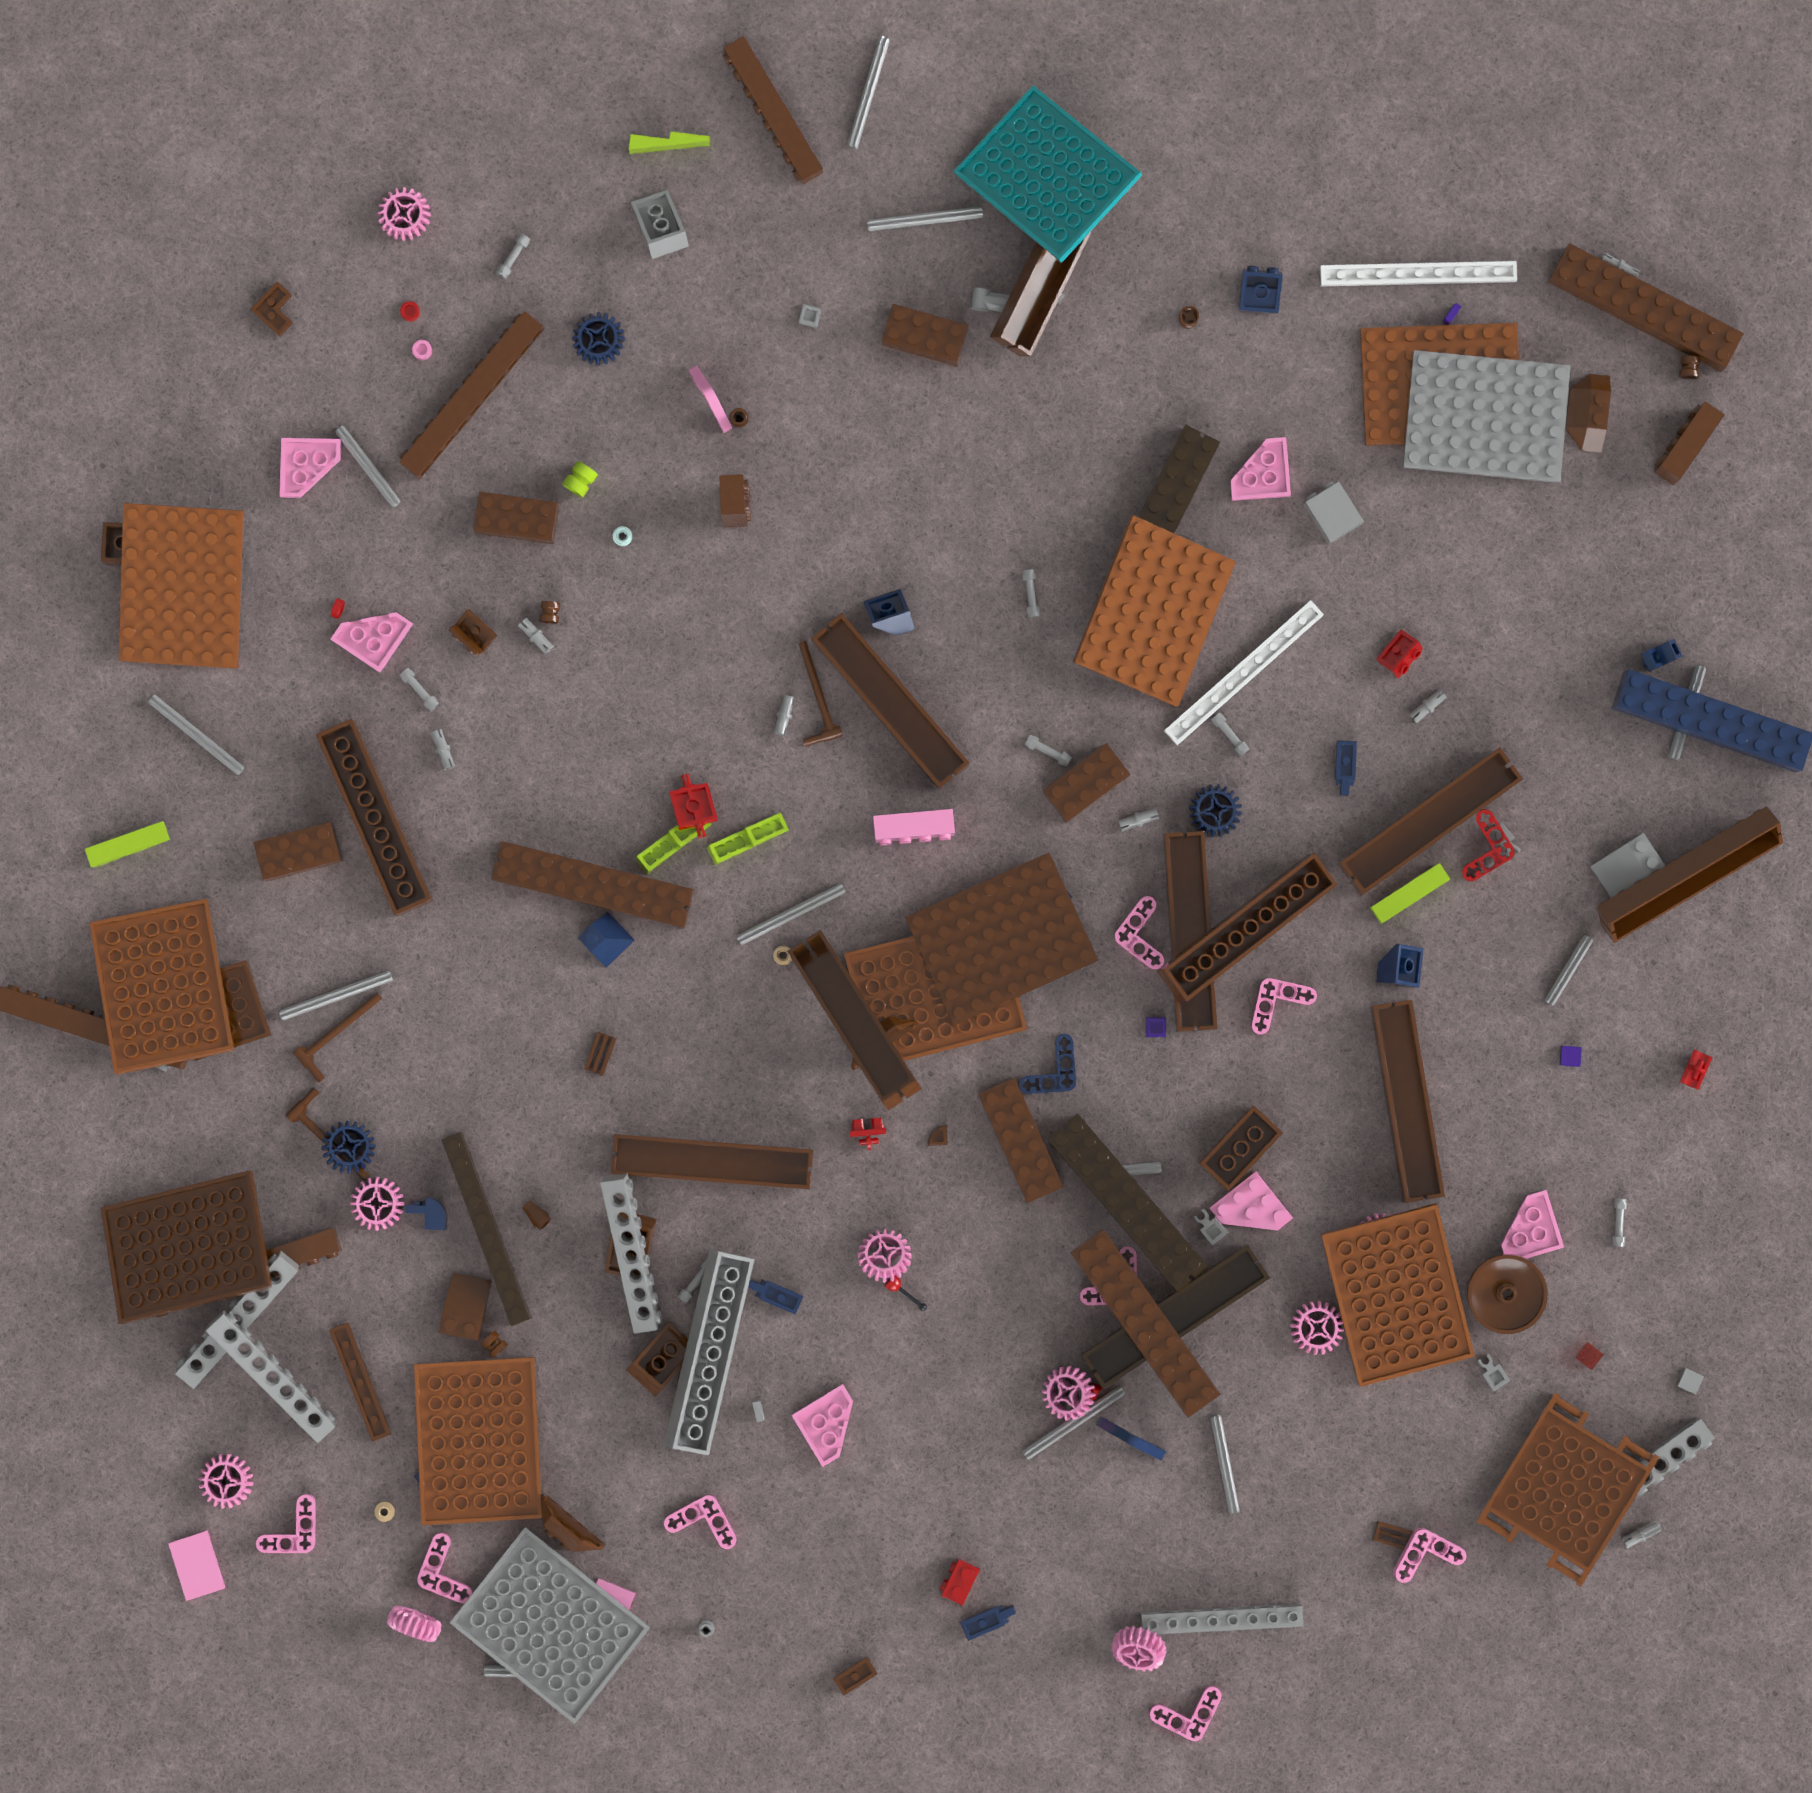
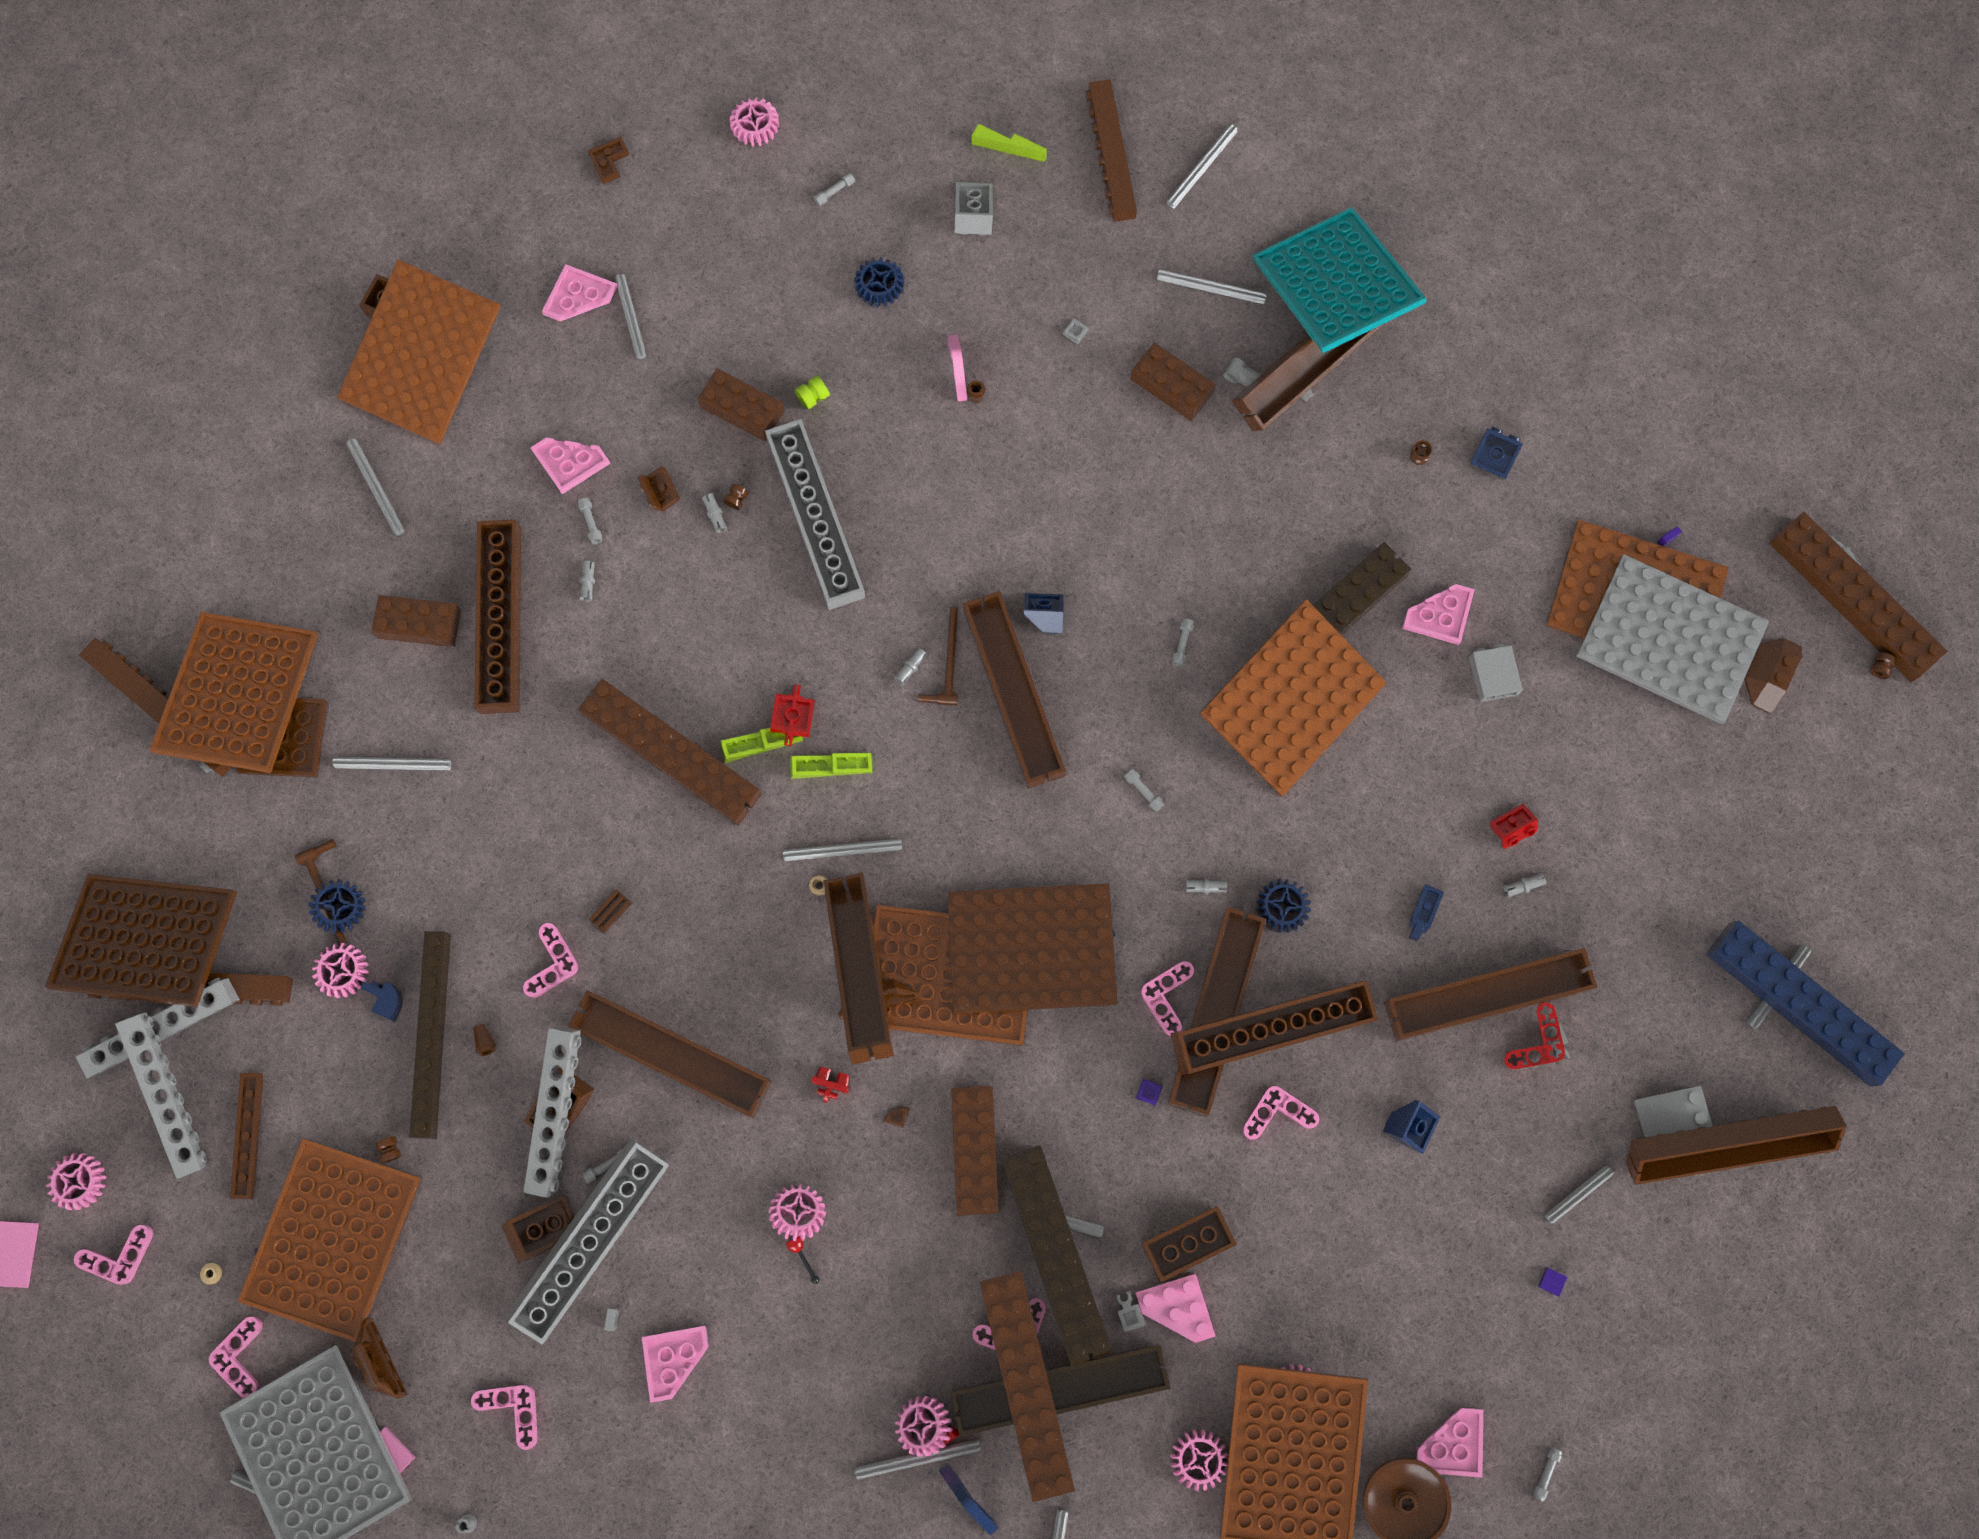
camera: 25 degrees right, 10 degrees down
(127, 844) = (268, 558): lime slope -> none
(306, 1056) = (339, 807): reddish brown bar -> none
(337, 608) = (549, 424): red tile -> none
(410, 311) = (725, 203): red tile -> none
(414, 1623) = (183, 1399): bright pink gear -> none
(422, 349) = (721, 238): bright pink tile -> none
(465, 1306) = (377, 1103): reddish brown slope -> none
(471, 395) = (747, 288): reddish brown brick -> none
(574, 1124) = (557, 967): none -> bright pink beam
(606, 939) = (660, 806): dark blue slope -> none
(618, 531) = (826, 451): light aqua plate -> none
(634, 601) = (815, 514): none -> light grey brick
(735, 500) = (941, 454): reddish brown brick -> none
(776, 1295) = (677, 1210): dark blue hinge -> none
(914, 825) = (989, 810): bright pink brick -> none
(1056, 1078) = (1034, 1104): dark blue beam -> none
(1086, 783) = (1169, 833): reddish brown brick -> none
(1219, 721) = (1329, 855): light grey bar -> none
(1243, 673) = (1357, 788): white plate -> none
(1407, 1101) = (1372, 1263): reddish brown piece -> none
(1410, 893) = (1446, 1057): lime slope -> none
(1418, 273) = (1650, 491): white plate -> none
(1661, 655) = (1771, 921): dark blue brick -> none
(1687, 445) = (1861, 731): reddish brown brick -> none
(1695, 1069) = (1677, 1345): red hips -> none

